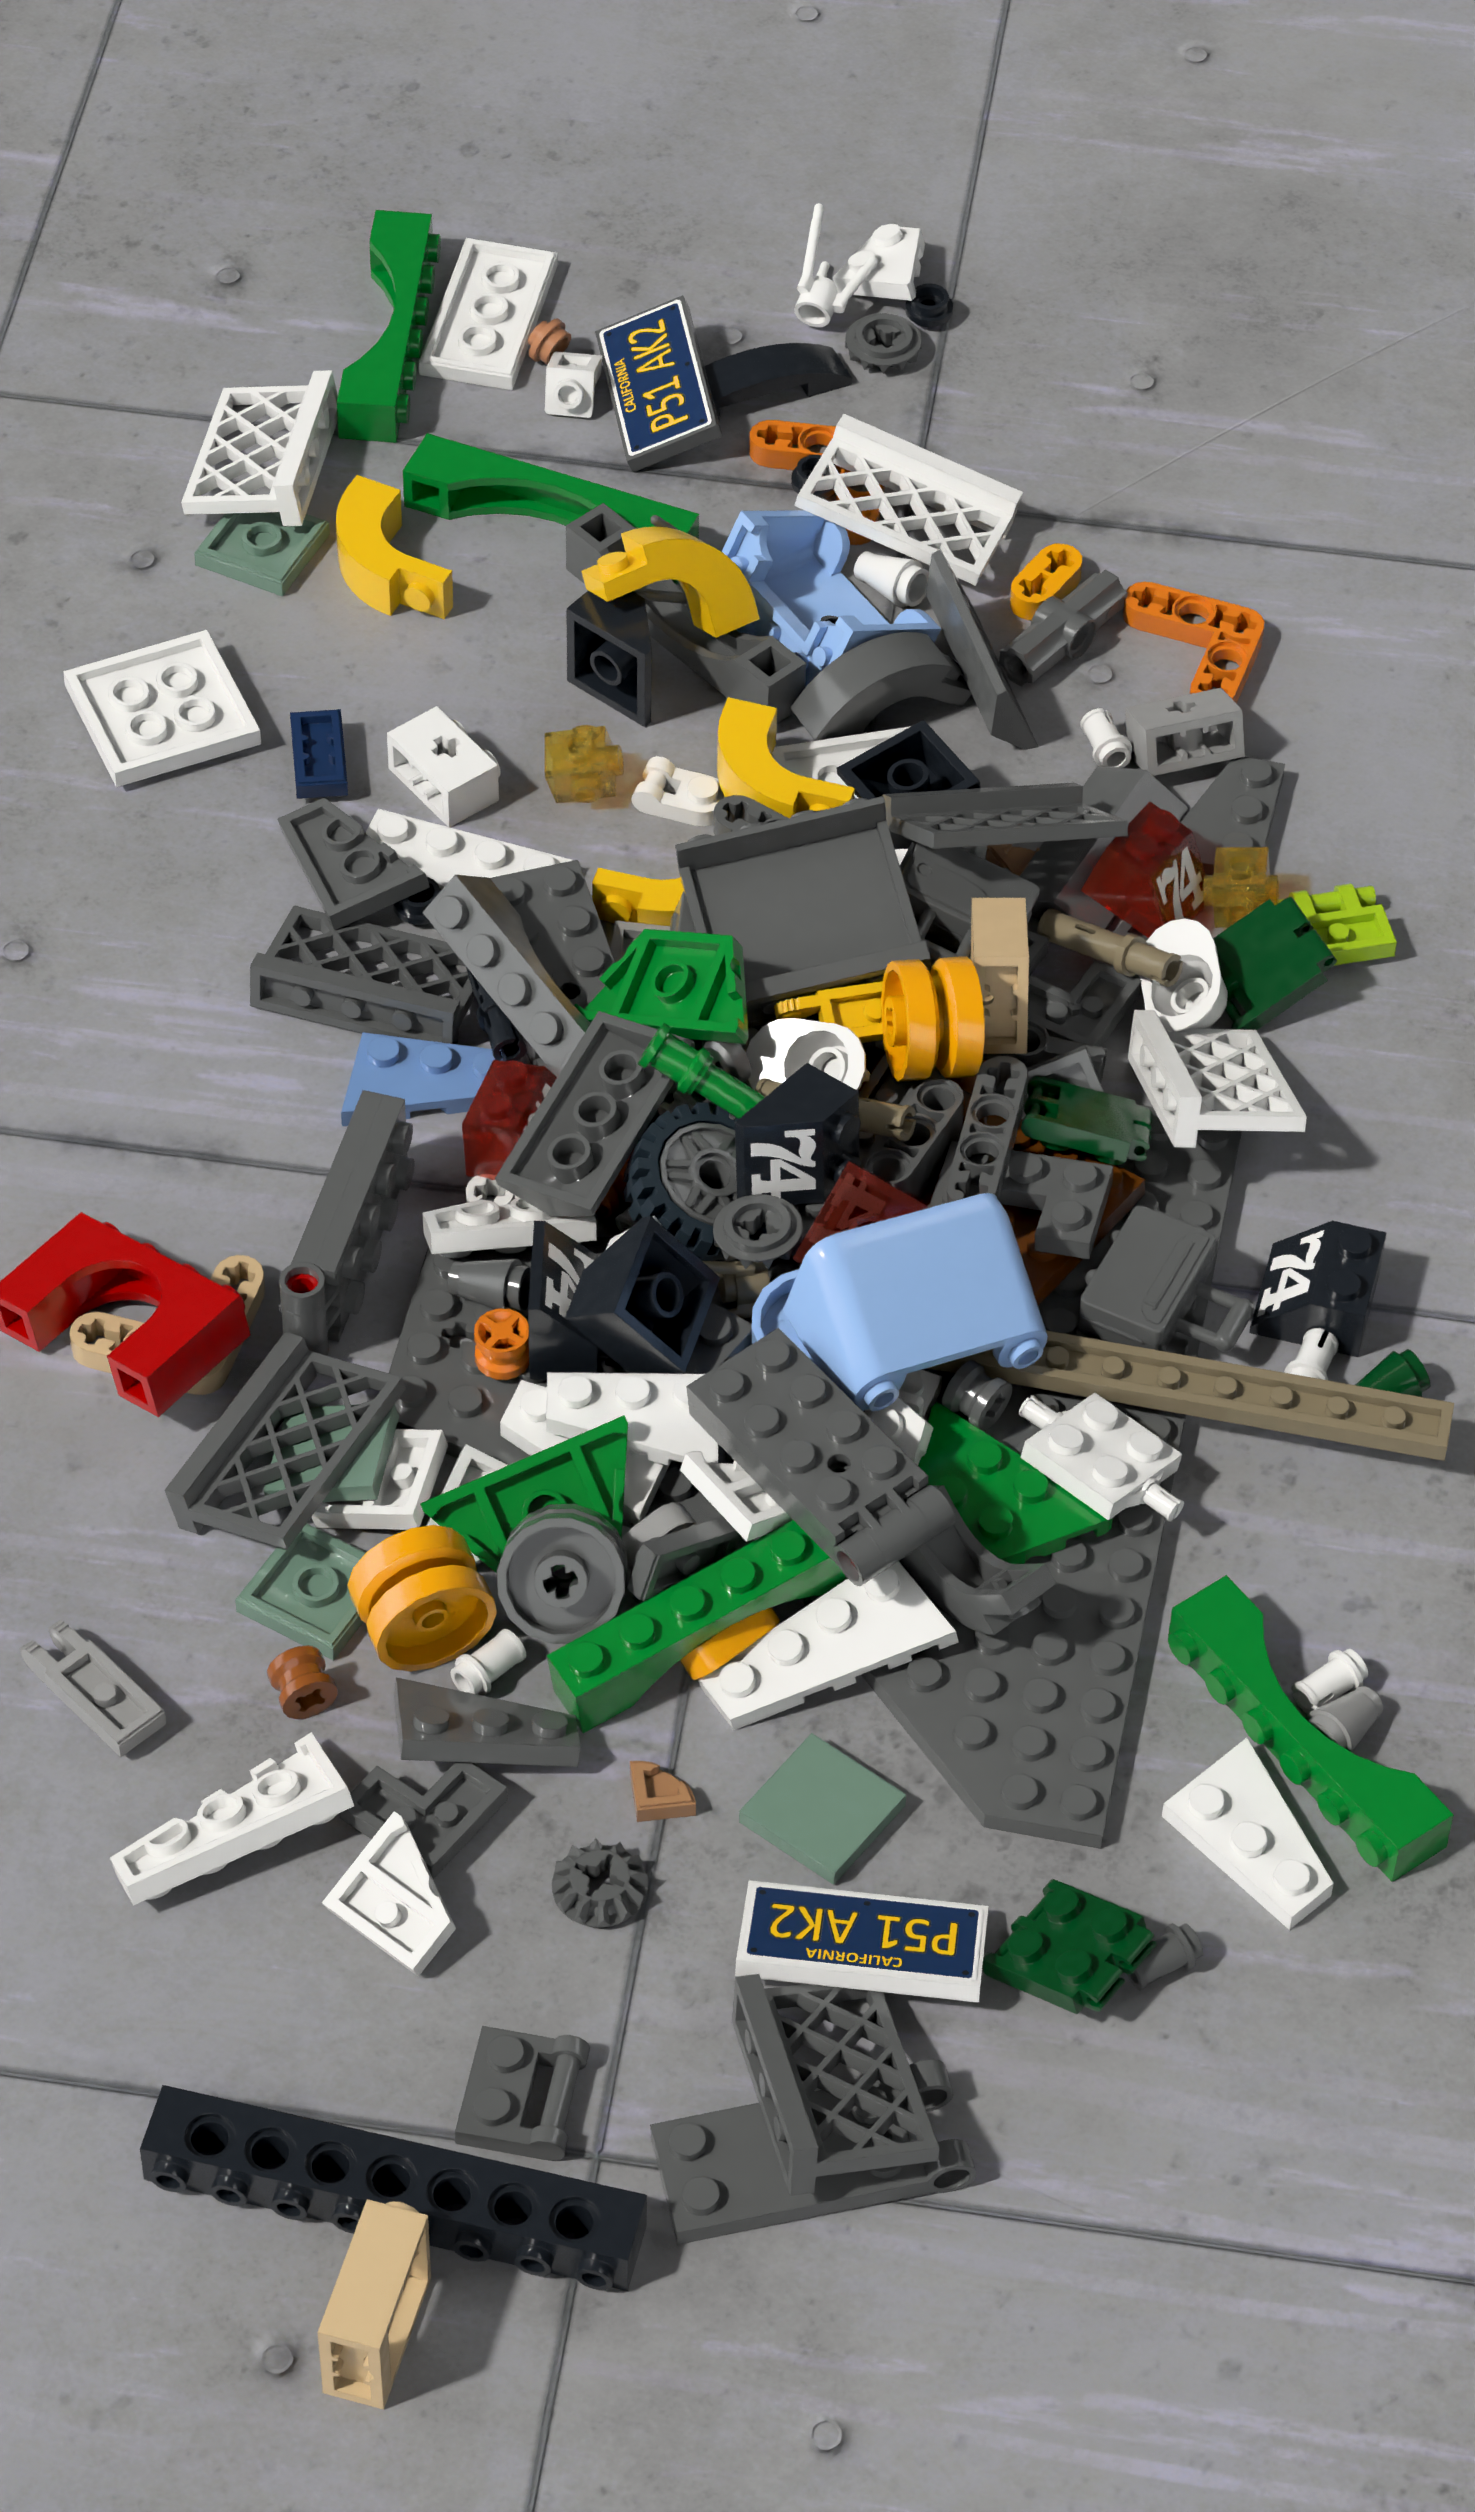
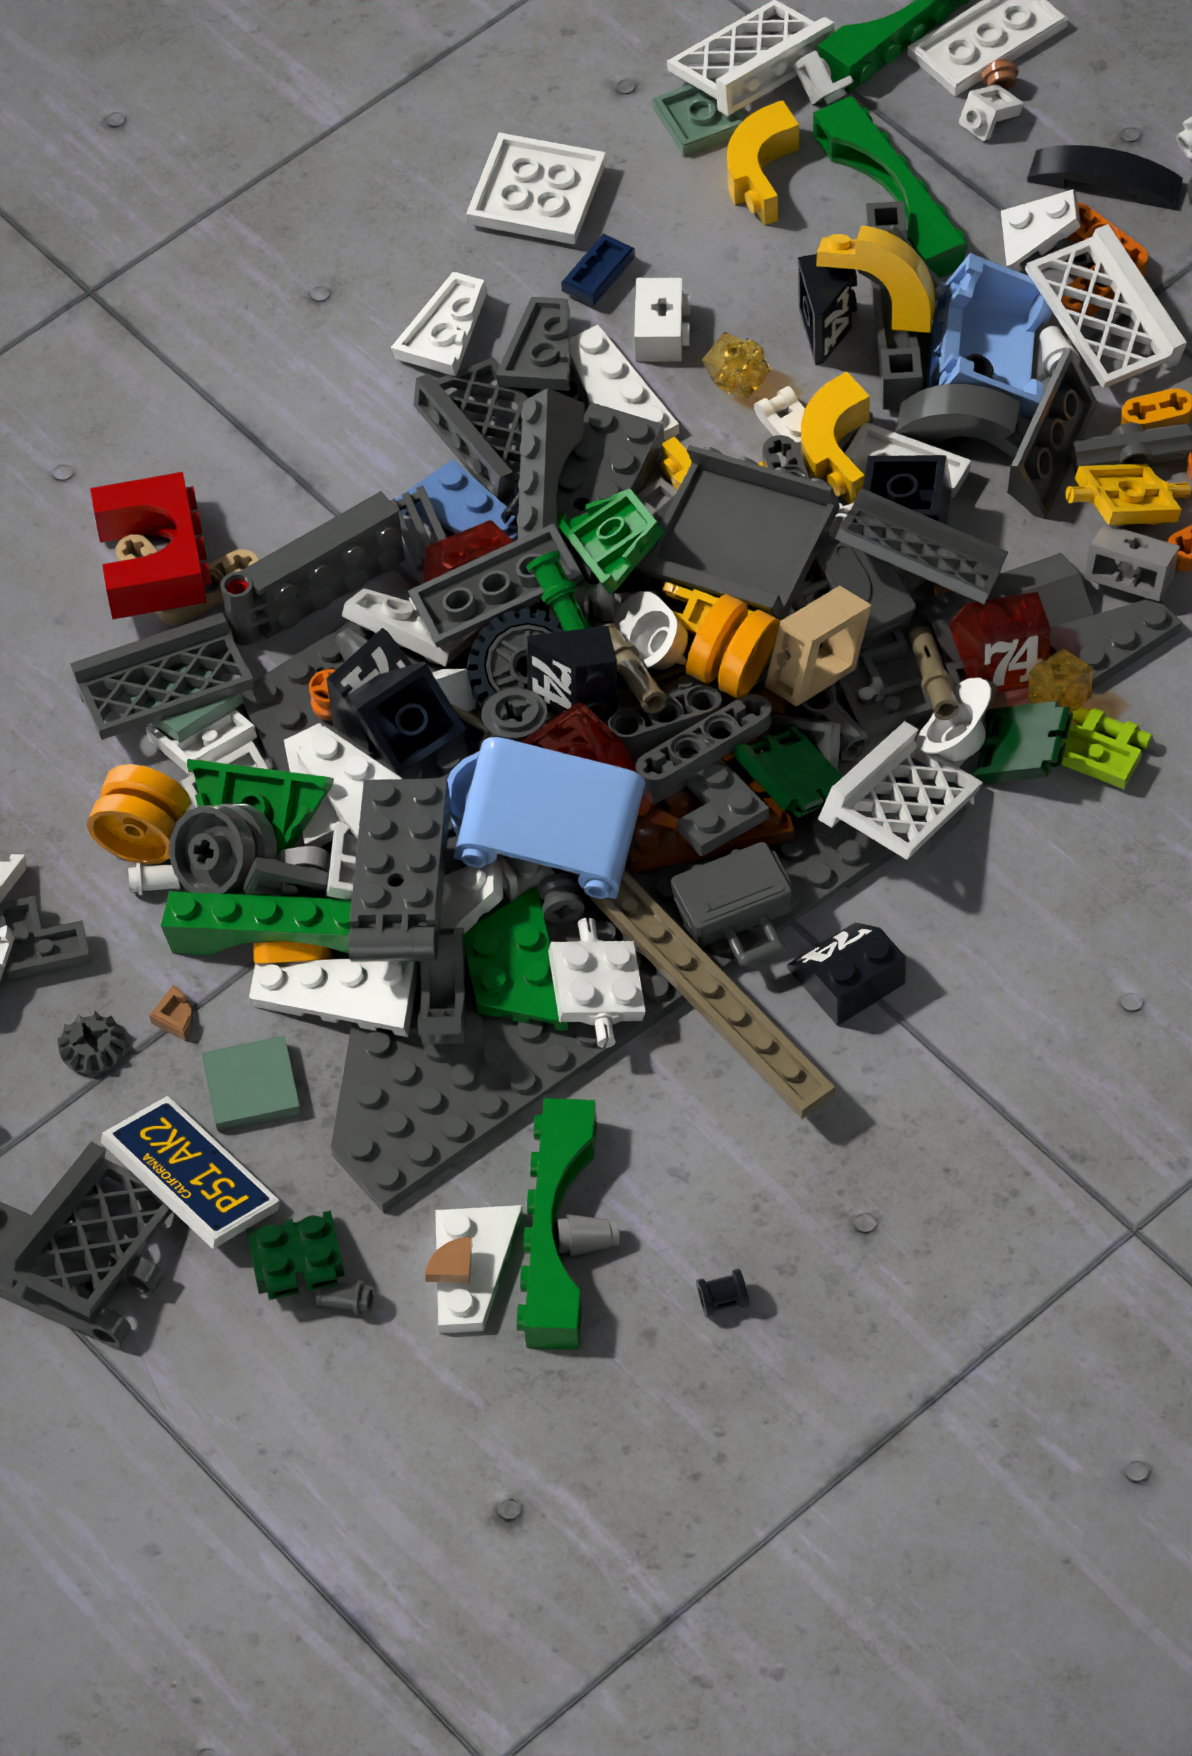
camera: 45 degrees right, 5 degrees up
(209, 902) = (443, 326): none -> white wing
(302, 1682) = (45, 822): dark orange wheel -> none
(306, 1592) = (90, 764): sand green tile -> none
(366, 439) = (817, 81): none -> white bracket
(425, 1110) = (409, 501): none -> dark grey tile
(475, 1728) = (109, 910): dark grey wing -> none
(658, 384) = (1038, 141): tile -> none
(744, 463) = (1038, 226): none -> white wing
(1108, 745) = (1078, 544): white pin -> none
(1114, 669) = (1128, 494): none -> yellow plate
(1252, 1838) = (451, 1262): none -> medium nougat tile
(1311, 1359) = (795, 1010): white pin -> none
(1340, 1674) = (606, 1205): white pin -> none
(1398, 1374) = (830, 1053): dark green cone -> none

